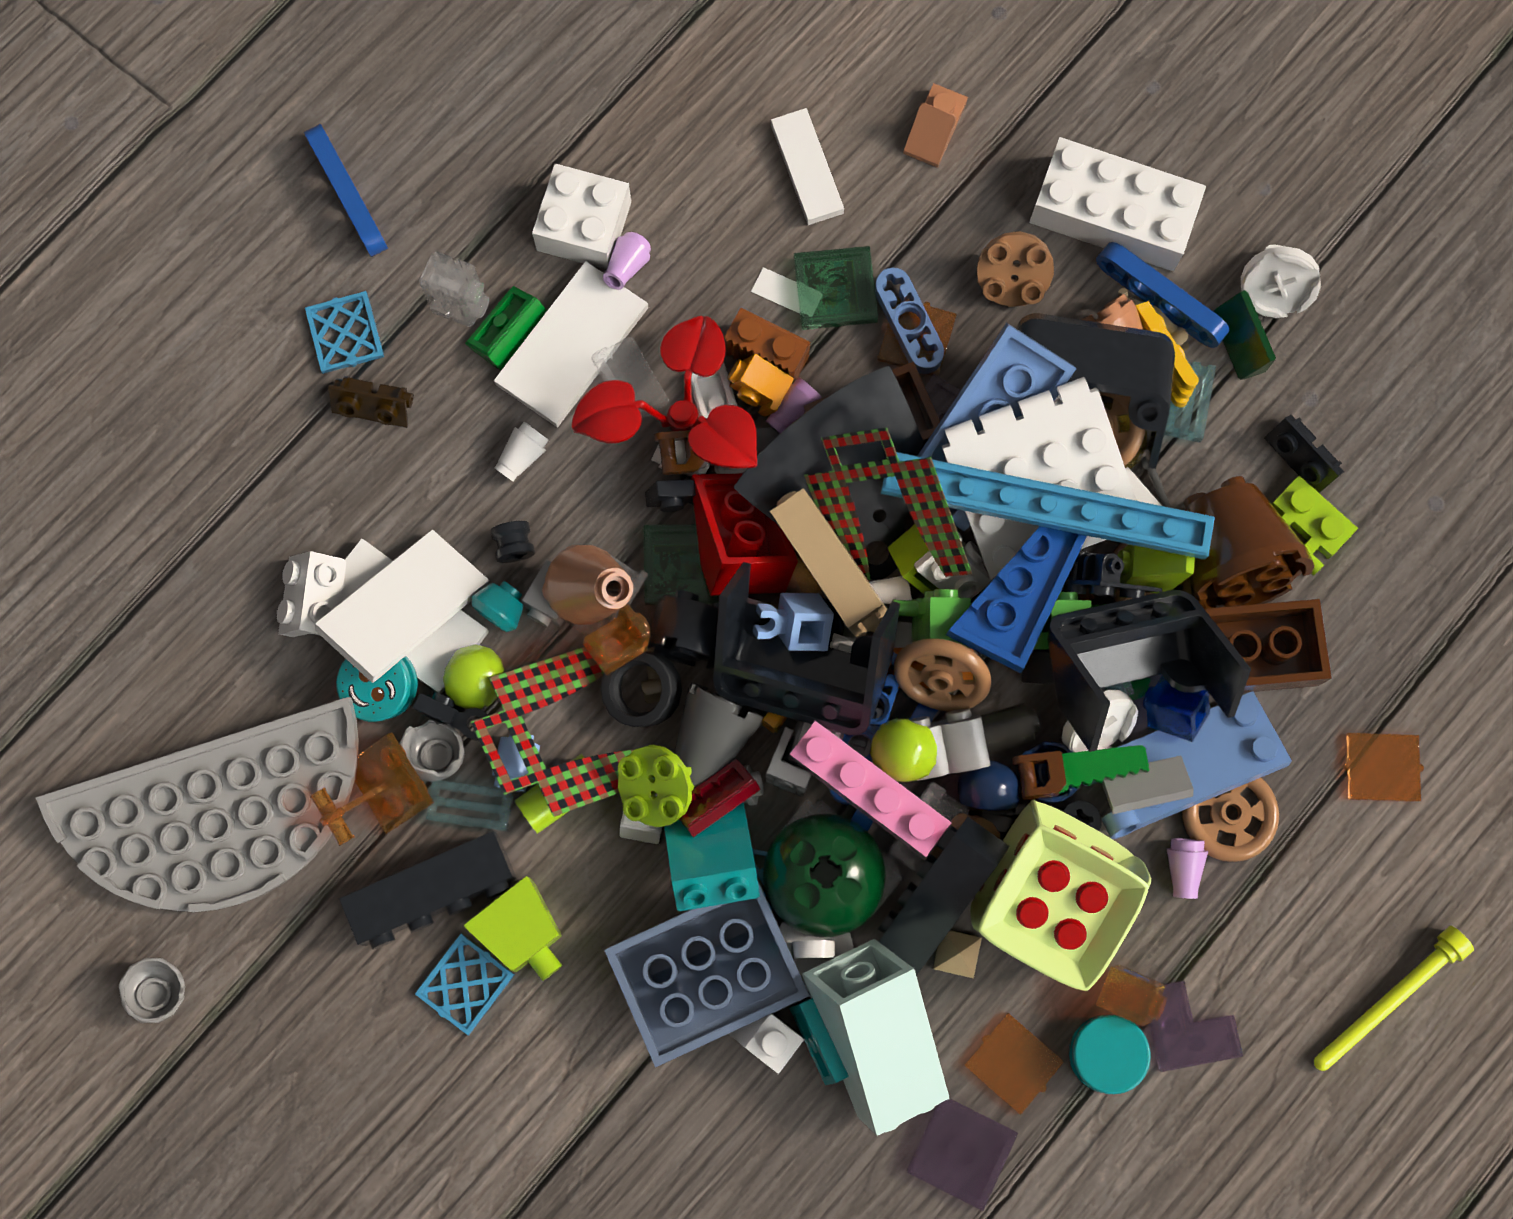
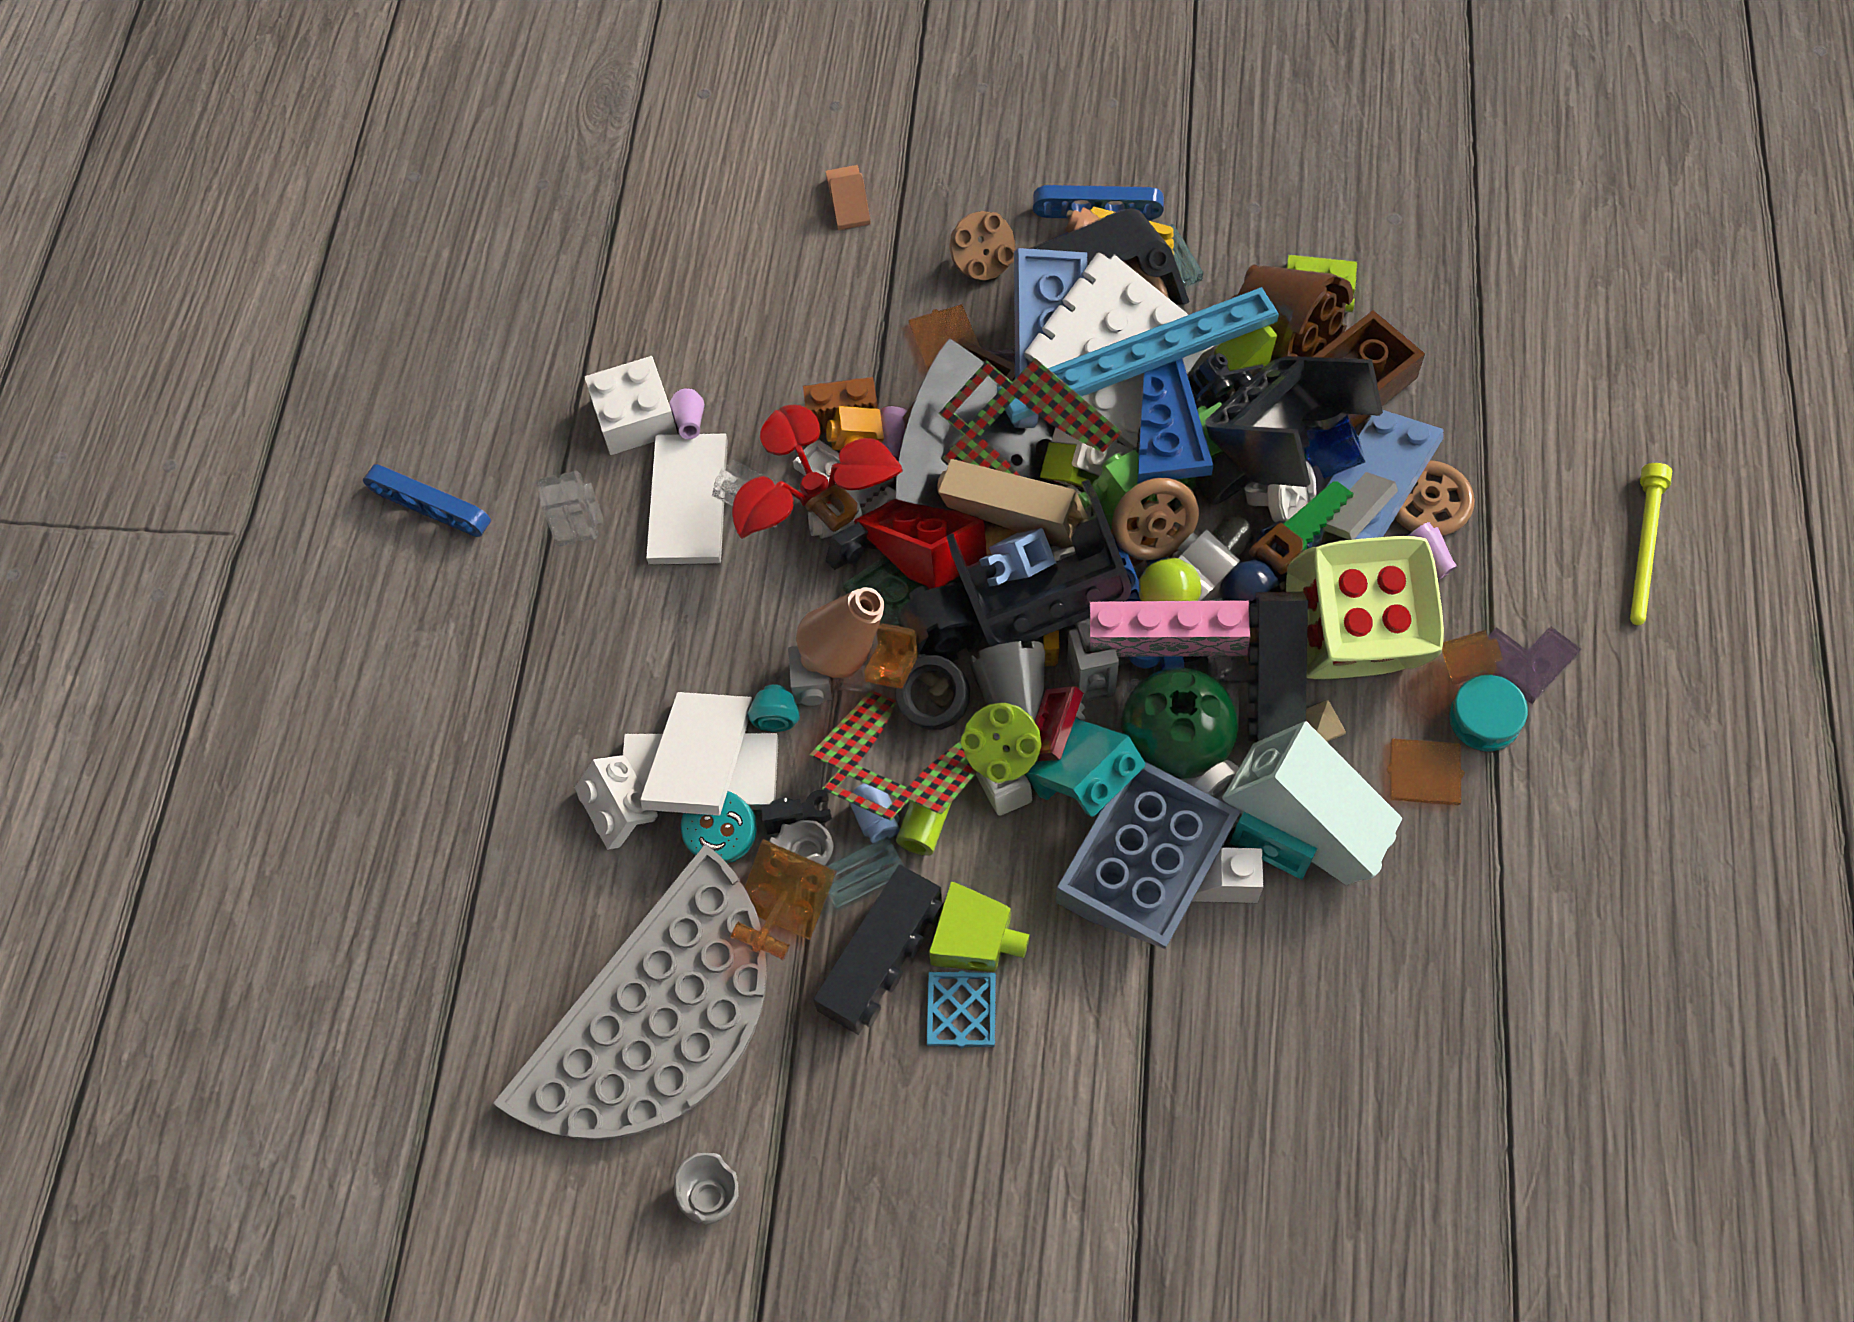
camera: 30 degrees left, 15 degrees down
(337, 304) = (477, 586): dark azure window -> none
(354, 399) = (559, 636): dark brown hinge -> none
(468, 676) = (793, 772): lime hair -> none
(506, 327) = (628, 518): green slope -> none
(512, 541) = (749, 658): black wheel -> none
(521, 451) = (706, 591): white cone -> none
(777, 289) = (825, 367): white sticker -> none
(807, 166) = (775, 277): white tile -> none
(835, 288) = (859, 340): clear green tile -> none
(907, 291) = (922, 314): medium blue beam -> none
(962, 1152) = (1442, 860): clear purple tile -> none
(1117, 201) = (1009, 164): white brick -> none
(1246, 337) = (1182, 194): dark green slope -> none
(1281, 281) = (1174, 141): white tile -> none
(1294, 444) = (1279, 239): black hinge -> none
(1383, 767) = (1506, 401): clear orange piece -> none

